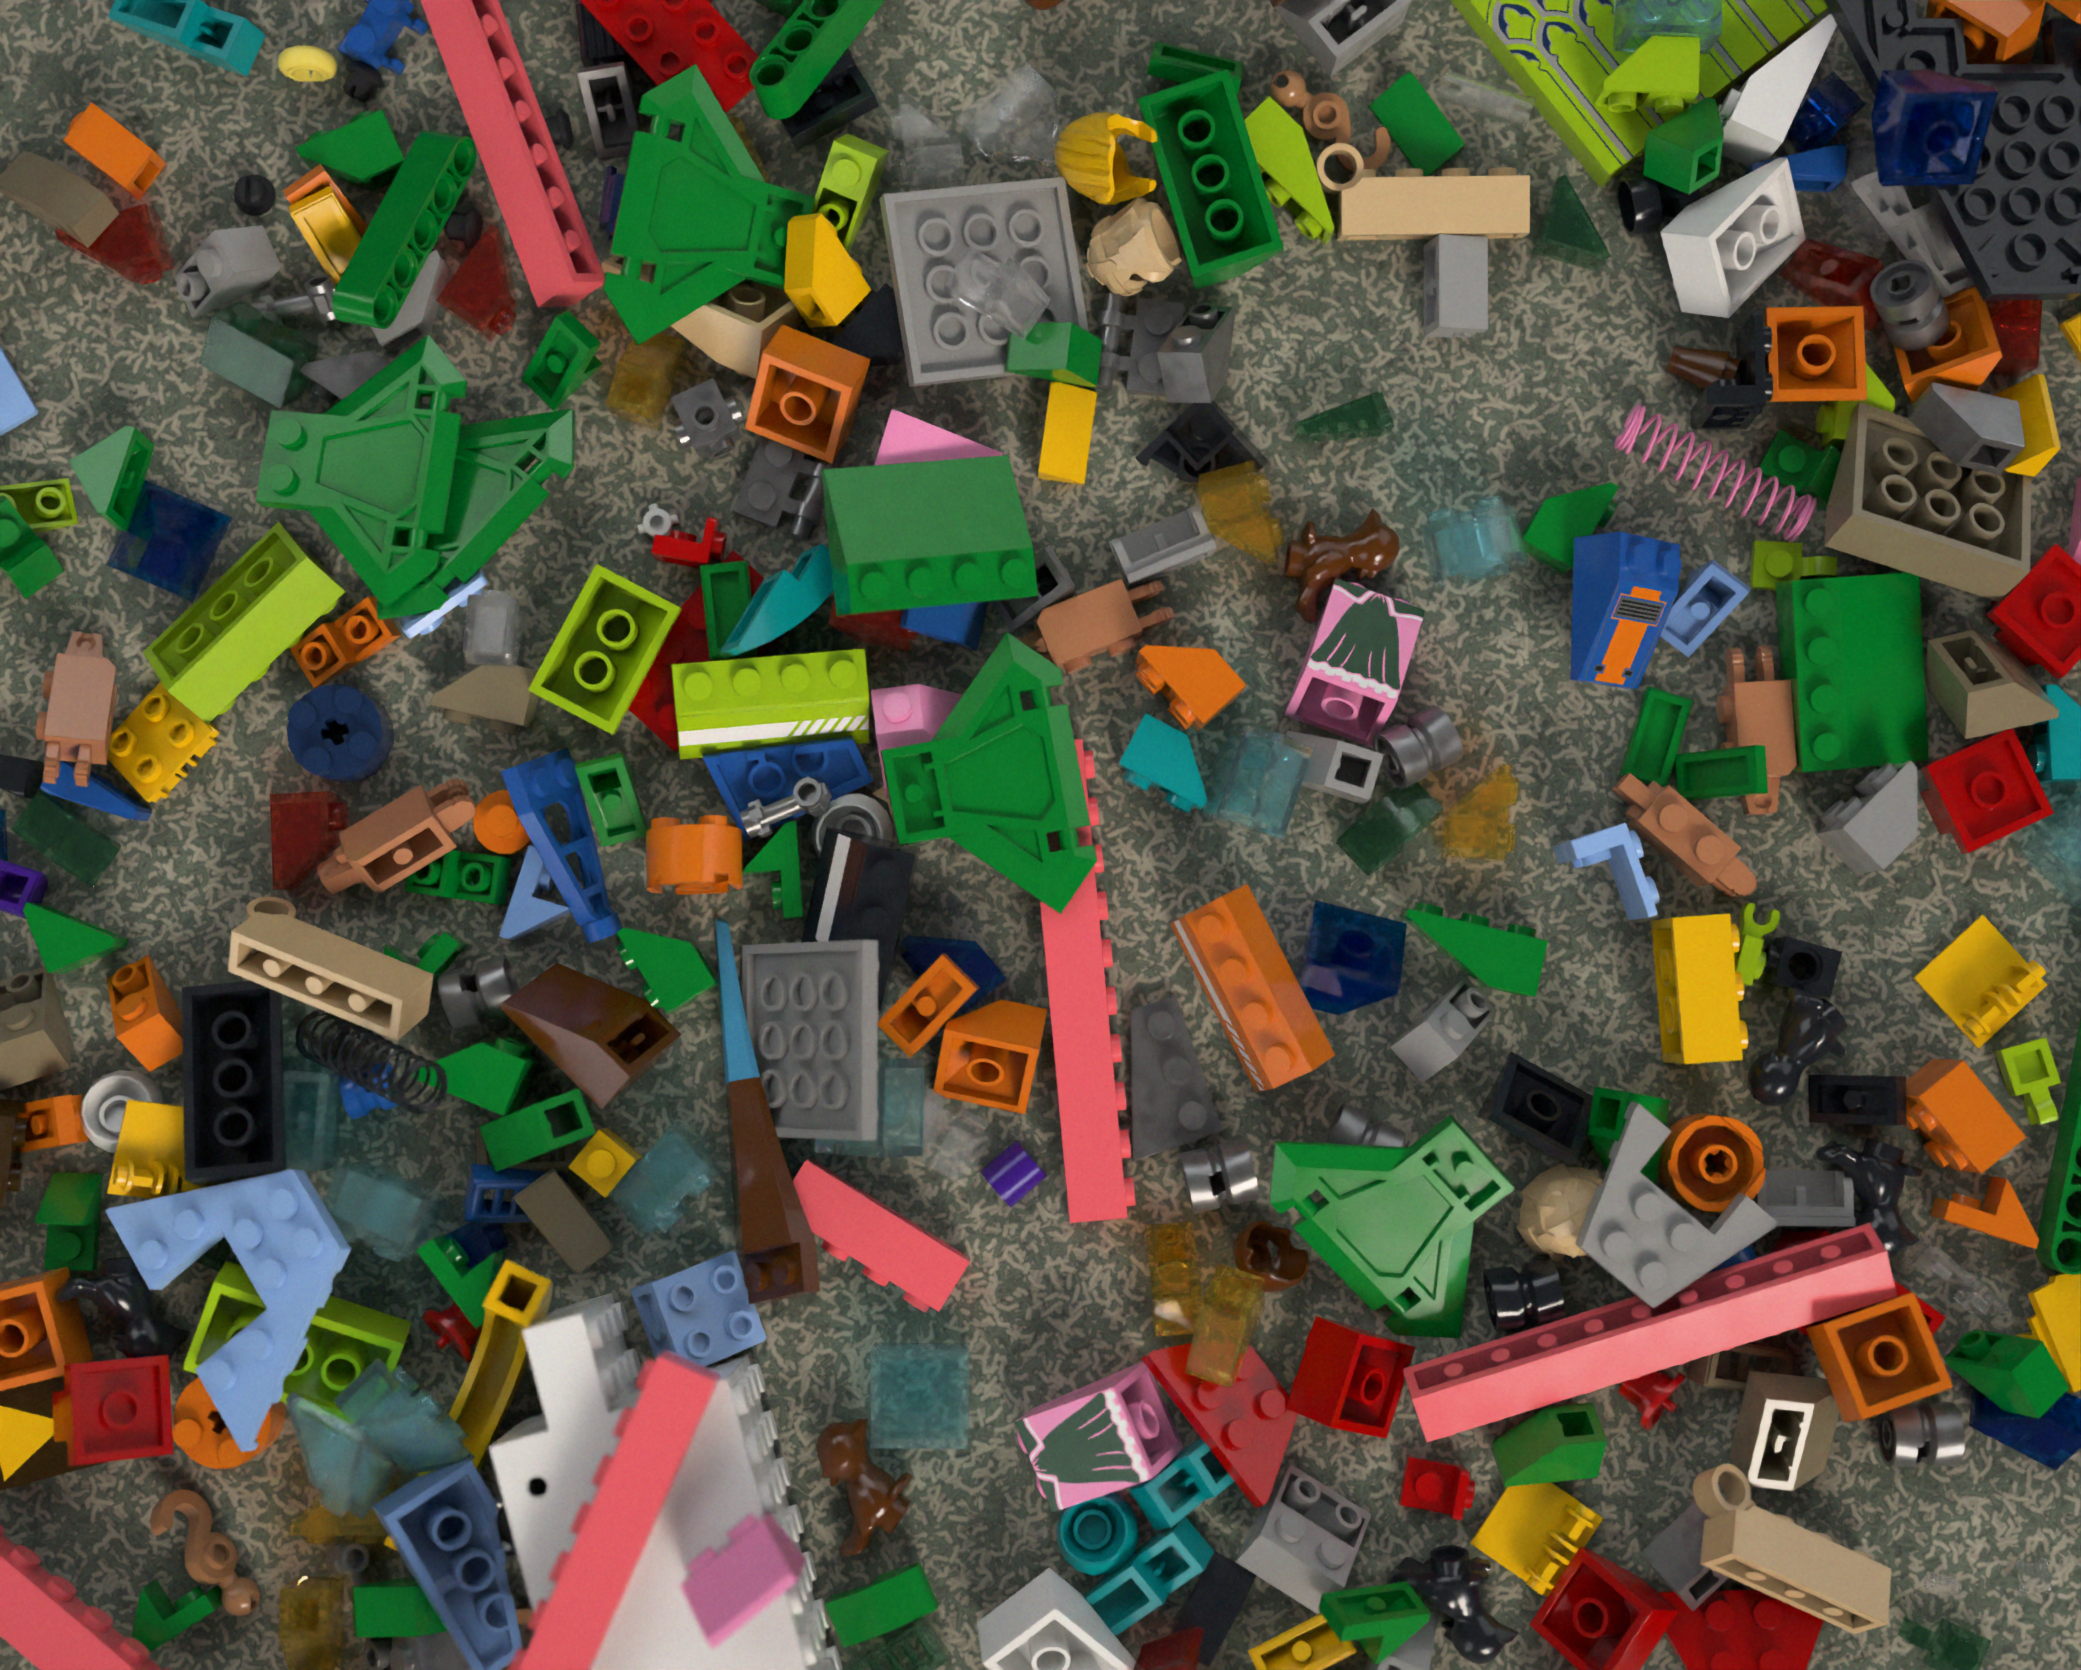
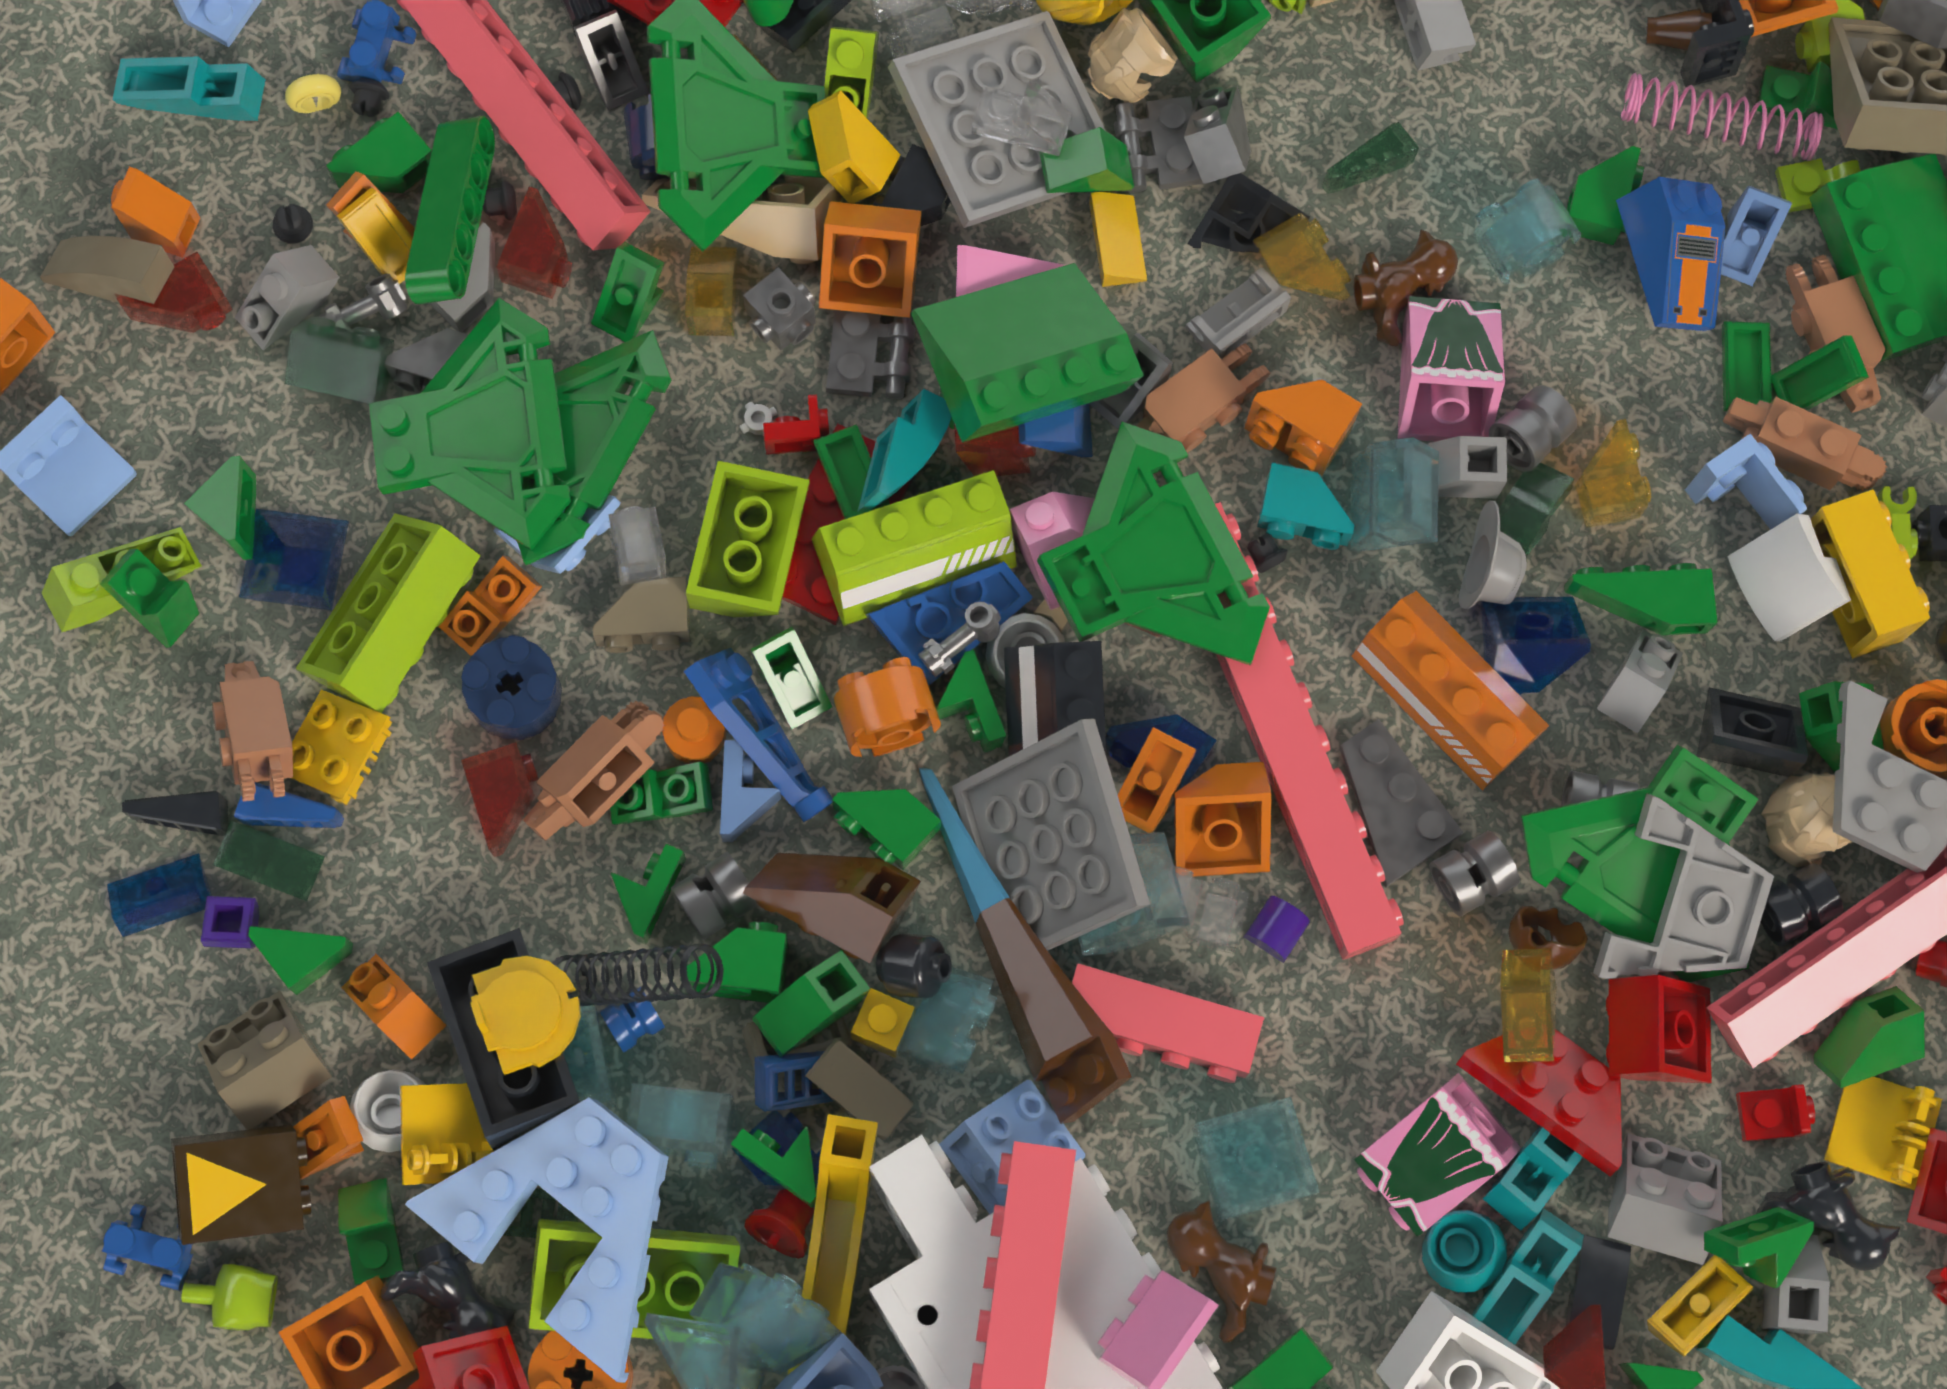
camera: 15 degrees left, 10 degrees down
(256, 1066) = (525, 1011): none -> yellow piece
(327, 970) = (568, 904): tan hinge -> none
(645, 1121) = (912, 966): none -> black head
(1116, 800) = (1267, 554): none -> black piece
(1173, 1278) = (1462, 984): clear yellow slope -> none
(1334, 876) = (1494, 565): none -> light grey piece
(1430, 1281) = (1708, 909): none -> light grey wing
(1621, 971) = (1788, 578): none -> white slope

